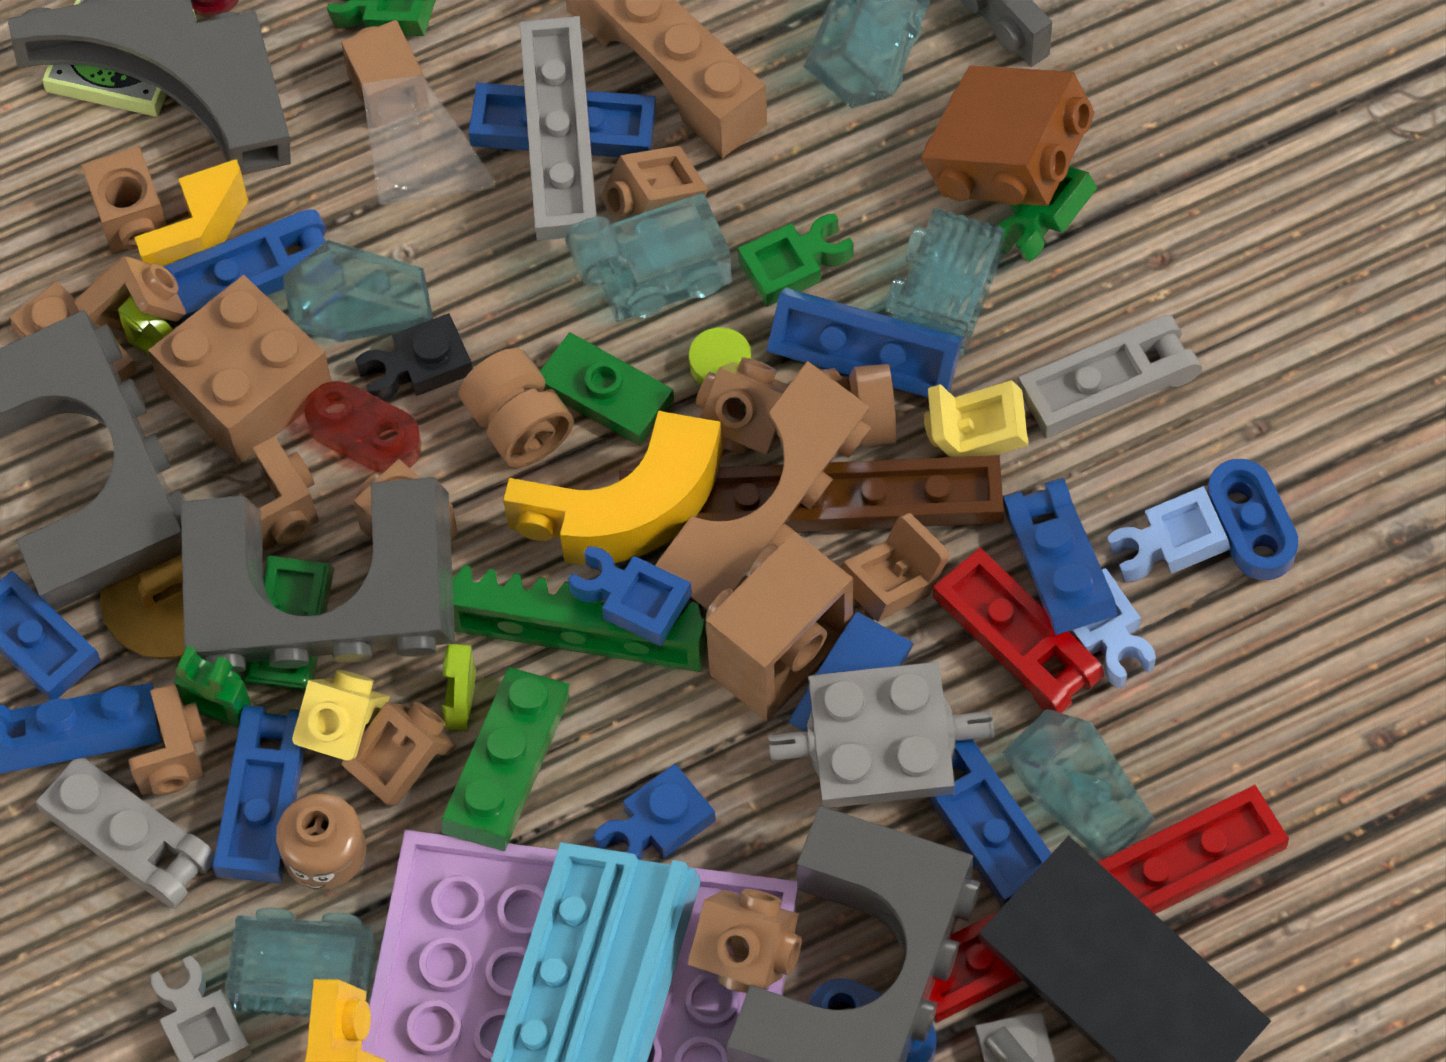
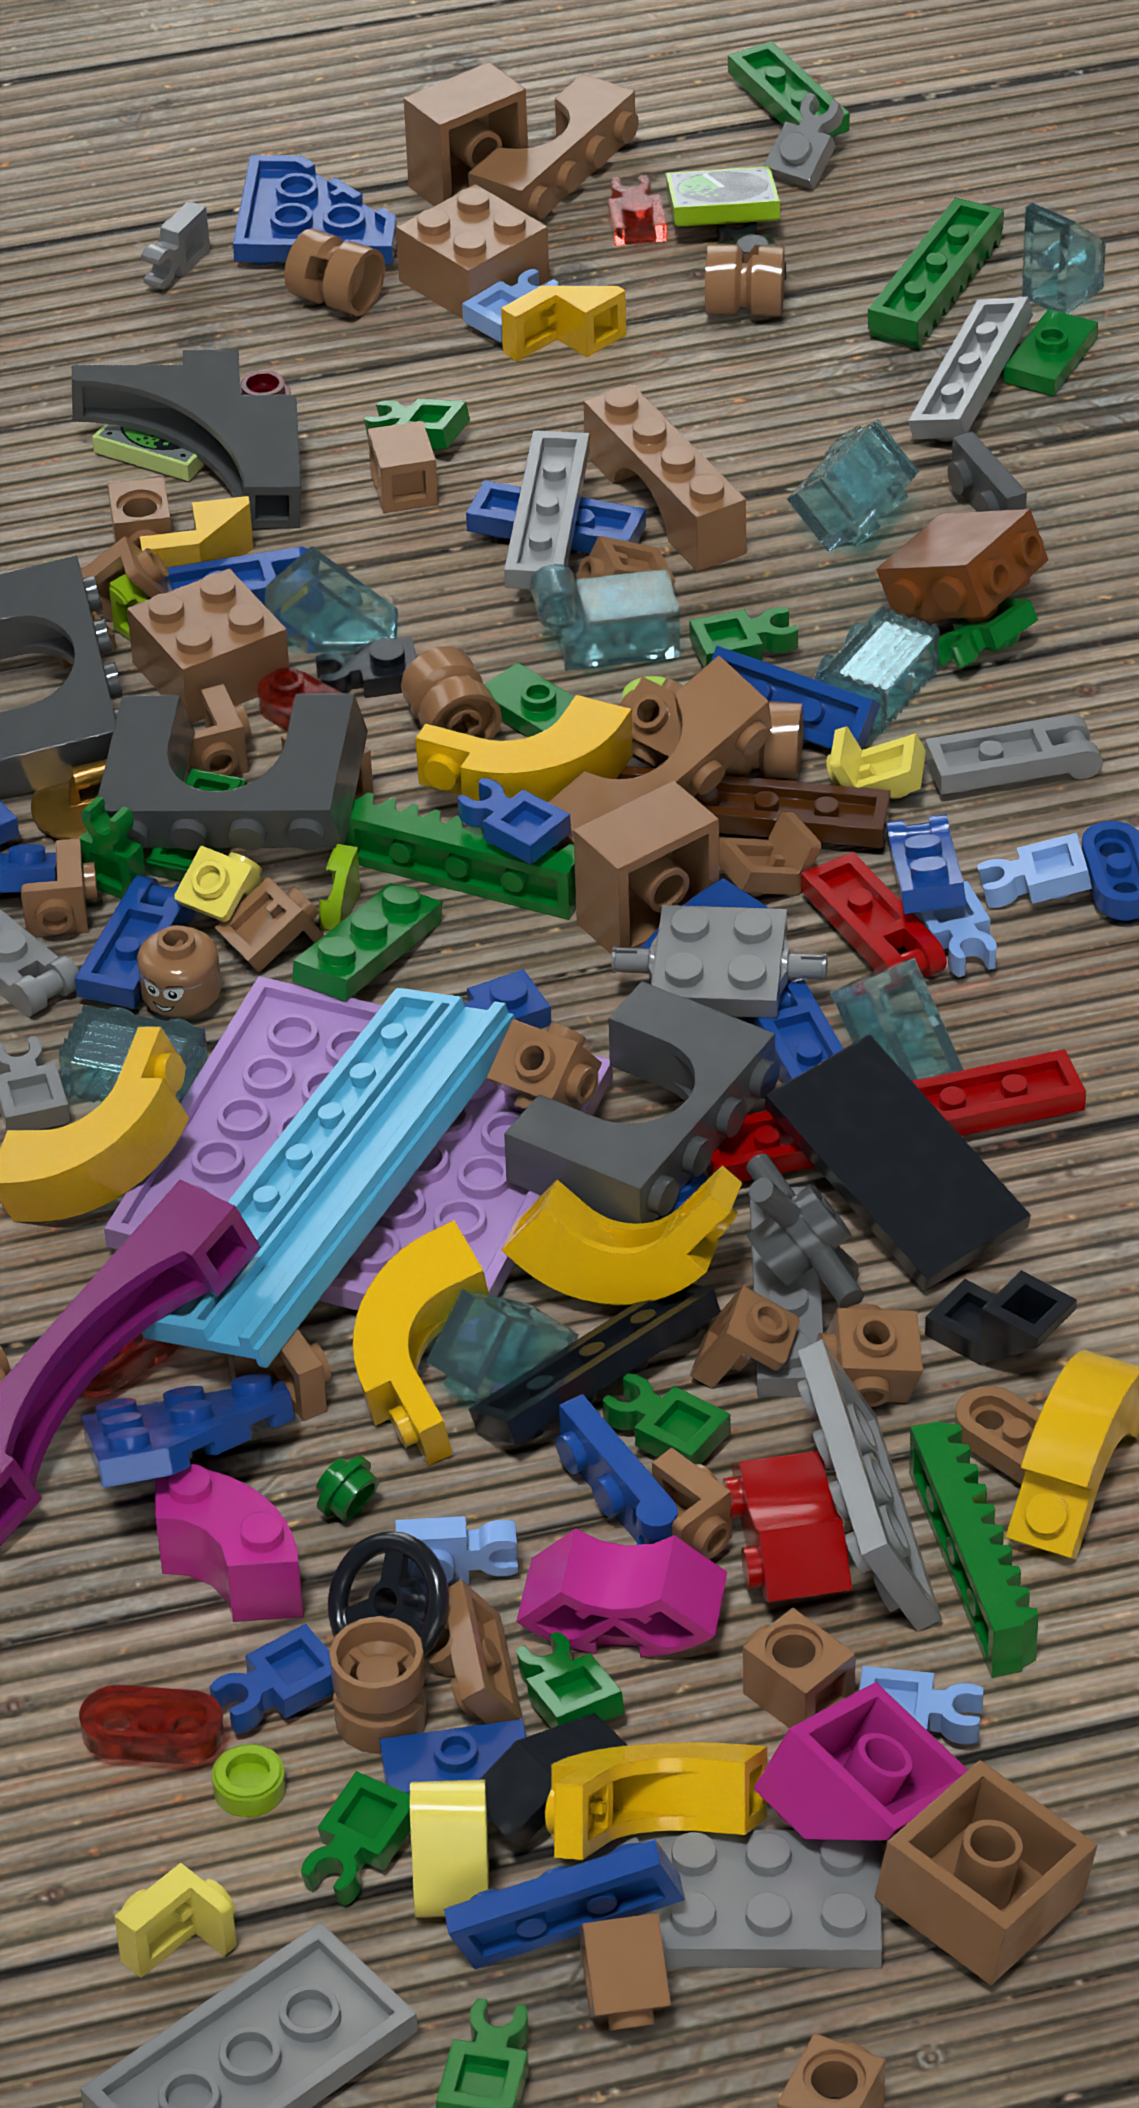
camera: 10 degrees right, 20 degrees down
(417, 143) = (417, 513): clear wing -> none

